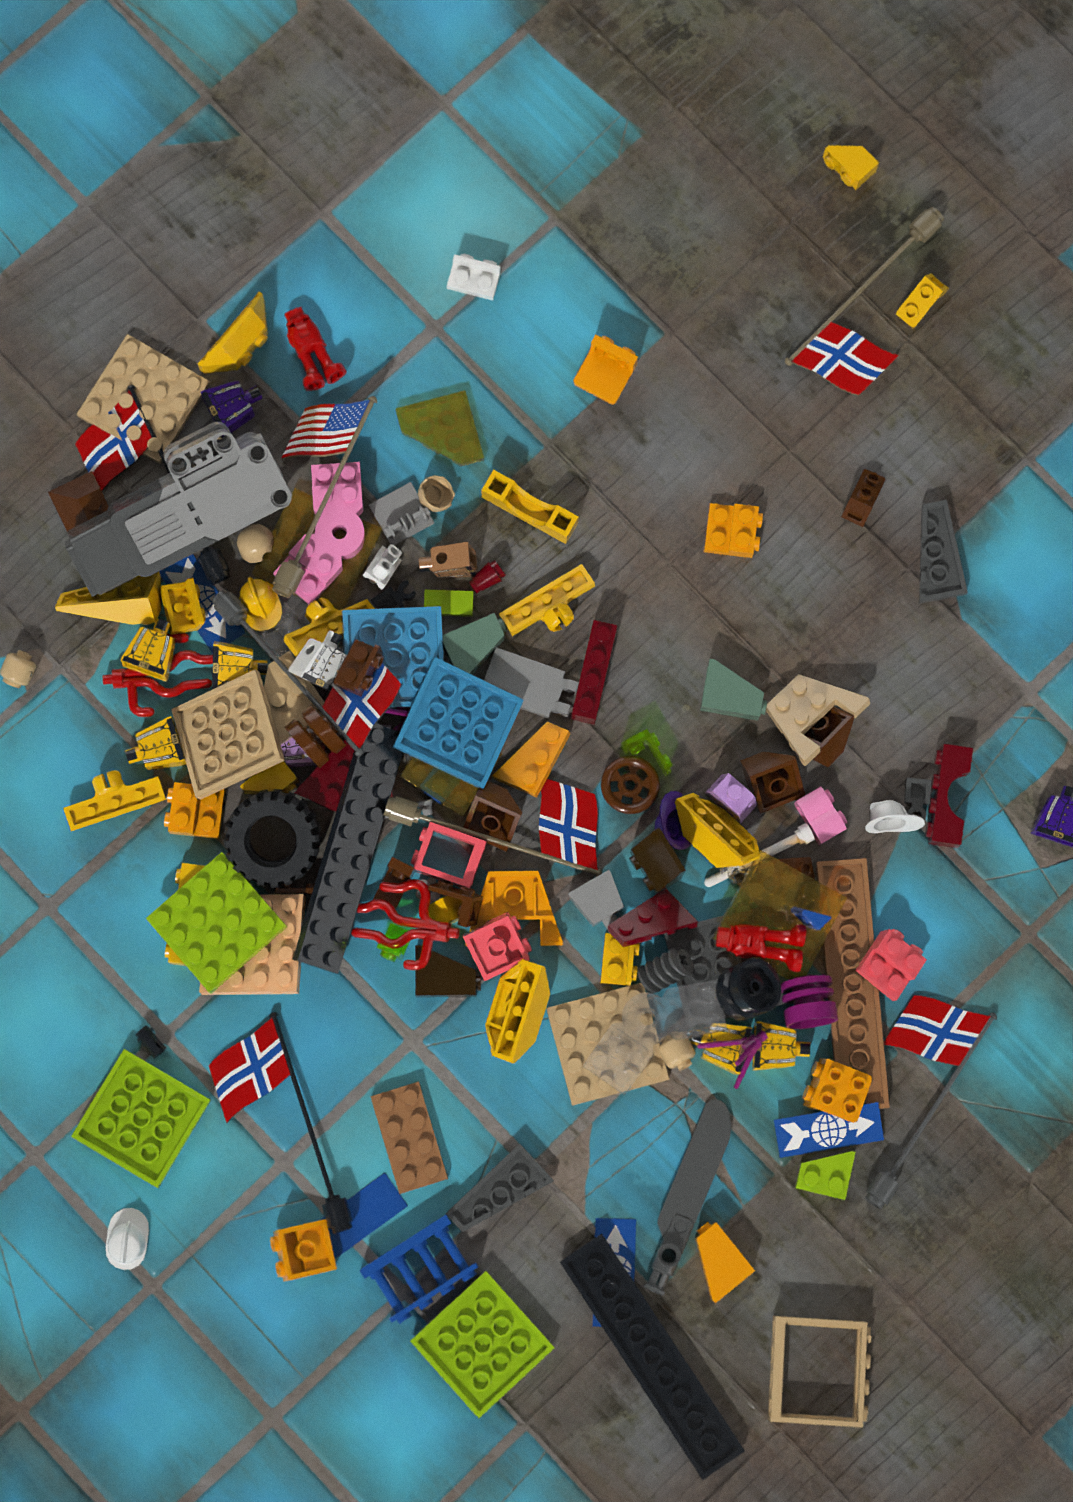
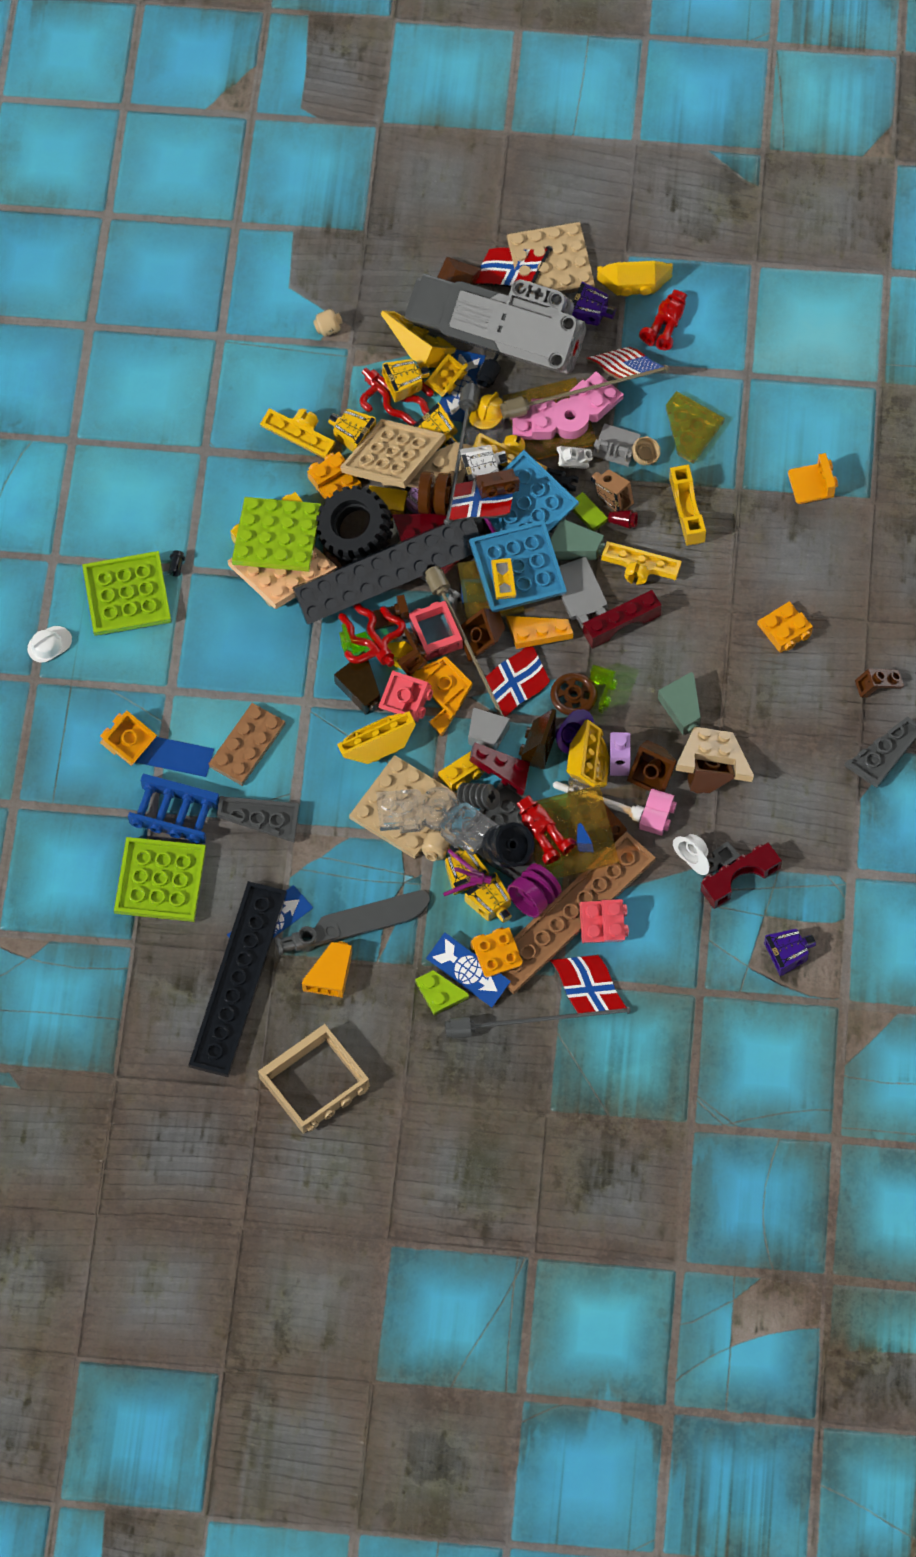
camera: 55 degrees right, 15 degrees down
(254, 1070) = (207, 630): flag -> none
(255, 542) = (521, 380): tan hair -> none
(464, 750) = (503, 578): none -> yellow piece
(474, 276) = (798, 369): white bracket -> none

